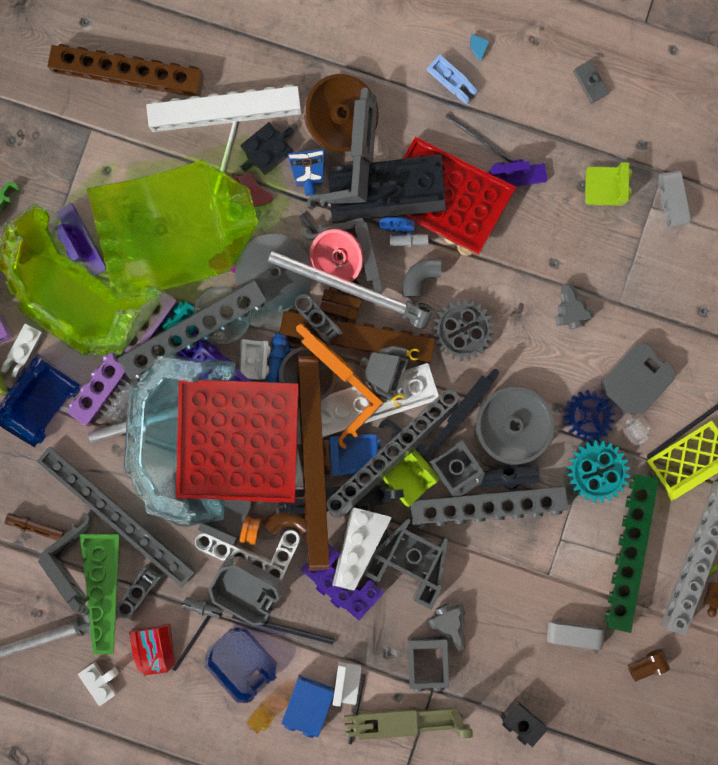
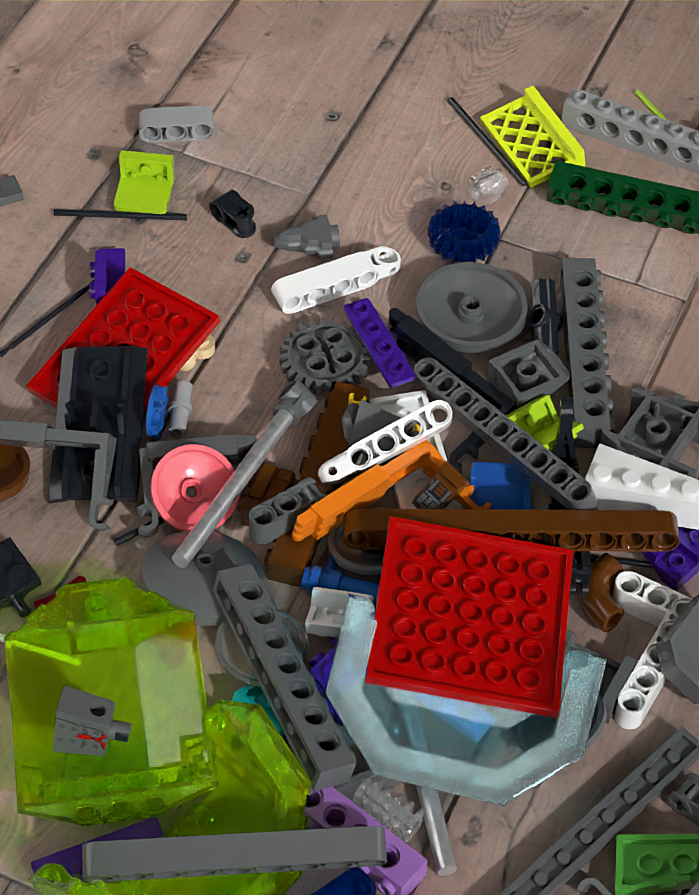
camera: 85 degrees left, 35 degrees down
(70, 316) = (234, 854): none -> dark grey beam
(139, 210) = (86, 724): none -> dark grey torso
(250, 530) = (614, 638): orange wheel -> none
(308, 169) = (47, 521): torso -> none
(345, 415) = (441, 489): none -> leg
(352, 352) = (345, 467): none -> white piece
(418, 273) = (235, 400): dark grey cylinder -> none
(471, 364) = (379, 343): none -> dark purple bracket
(535, 330) = (335, 279): none -> white piece
(582, 168) = (119, 214): none -> black axle
(590, 251) = (234, 213): none -> black piece
(603, 487) = (527, 238): teal gear -> none
(632, 384) = (419, 182): dark grey piece -> none

